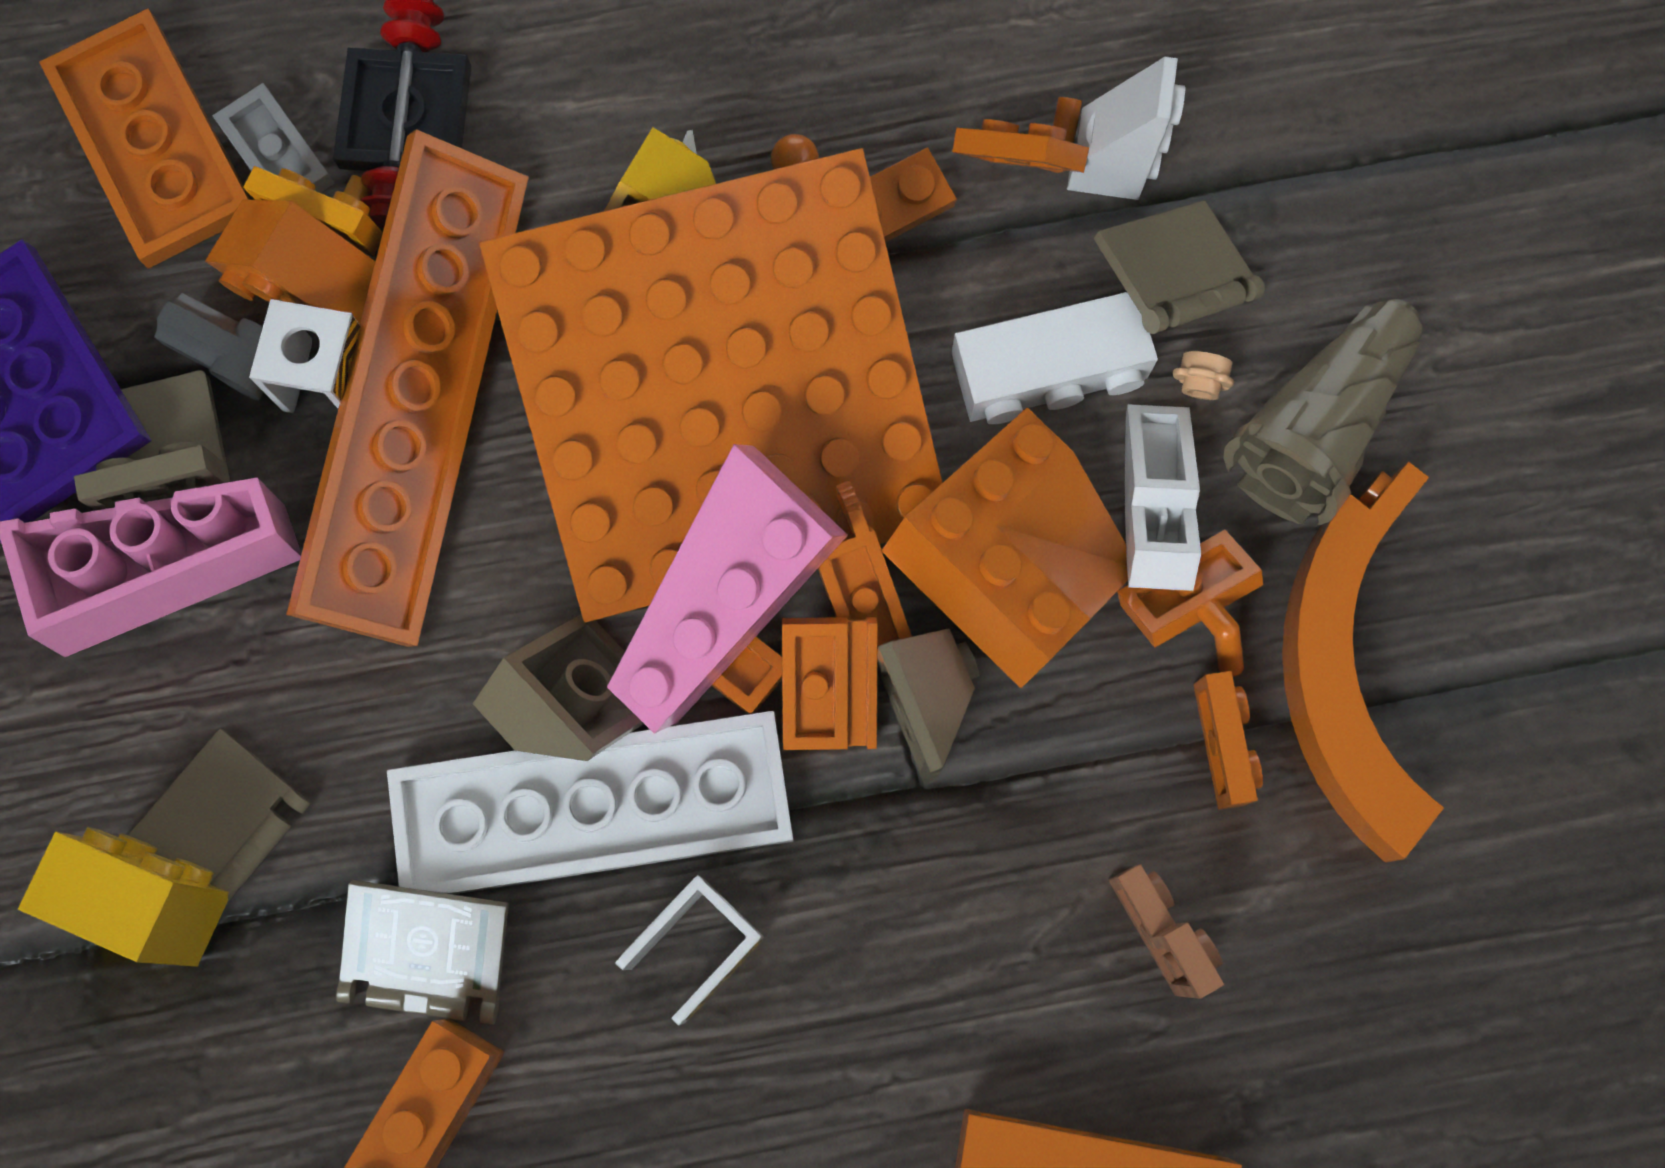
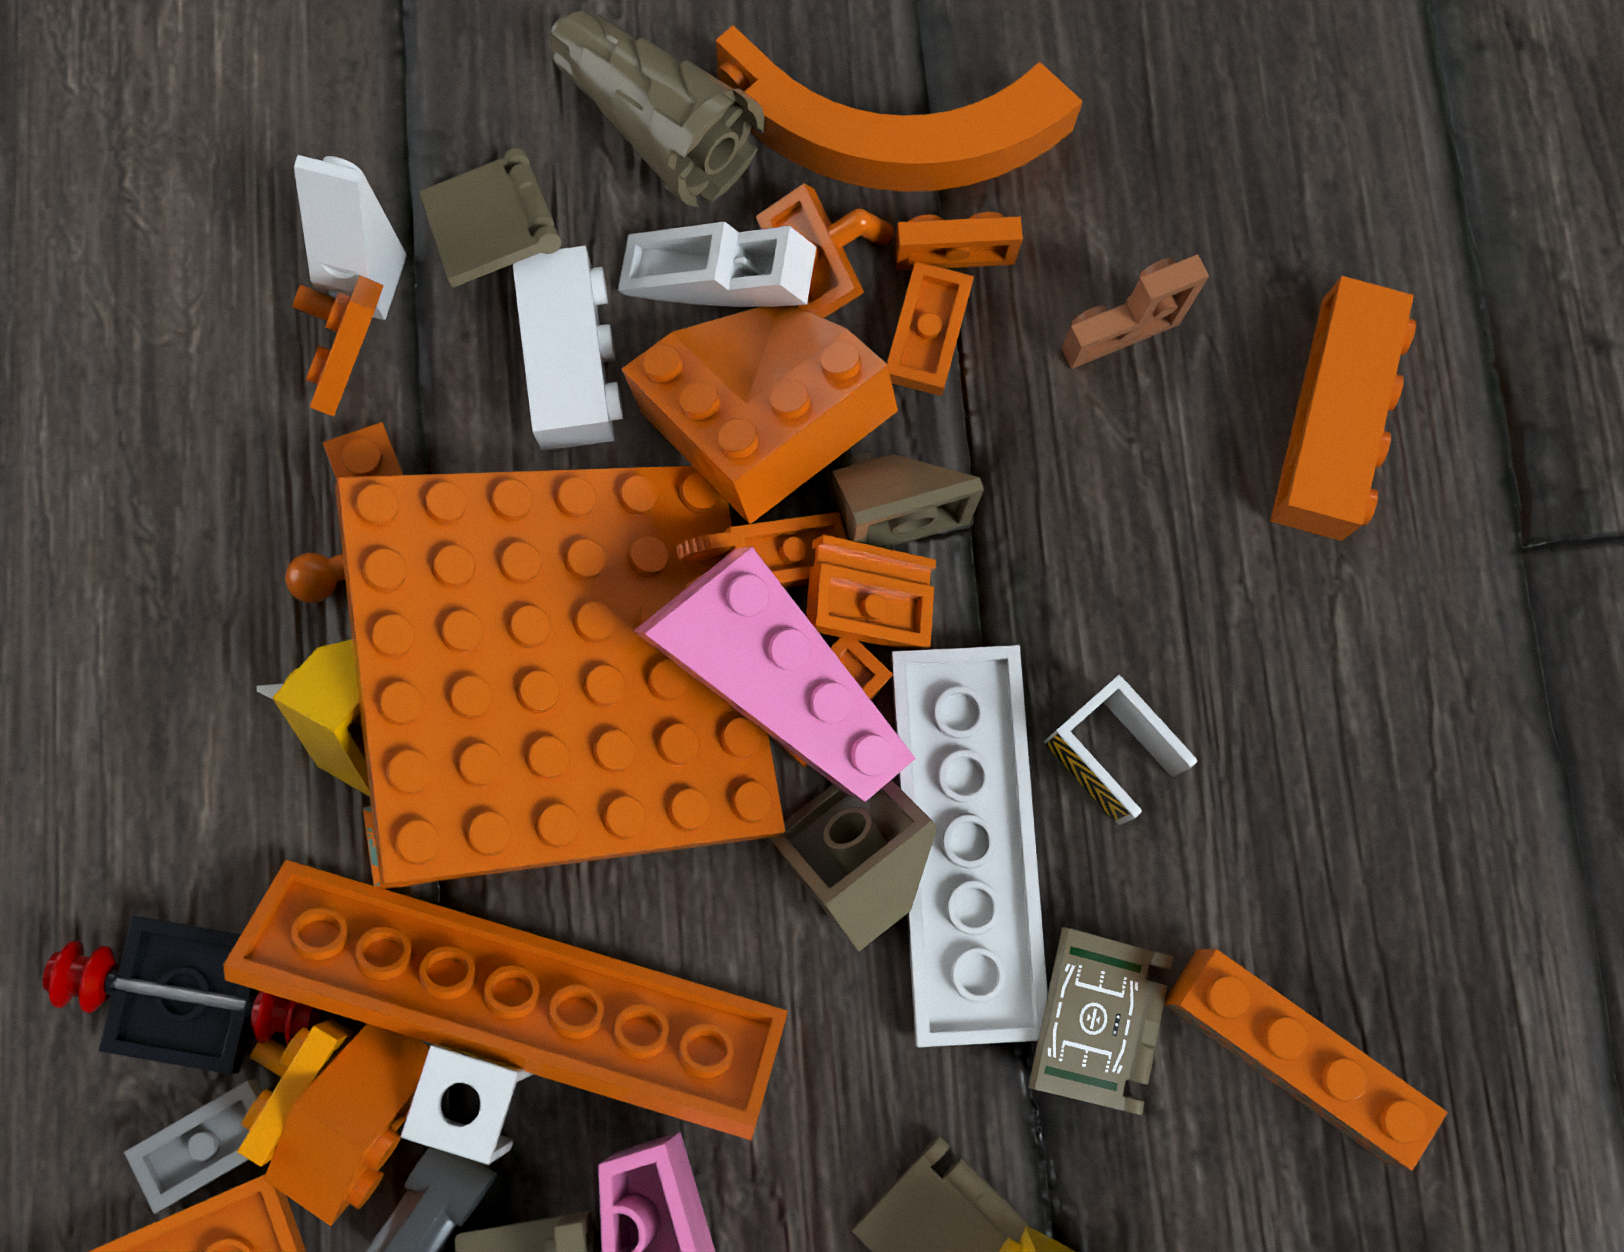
camera: 90 degrees left, 0 degrees up
(1127, 719) = (928, 328): none -> orange plate
(1204, 374) = (600, 214): light nougat plate -> none

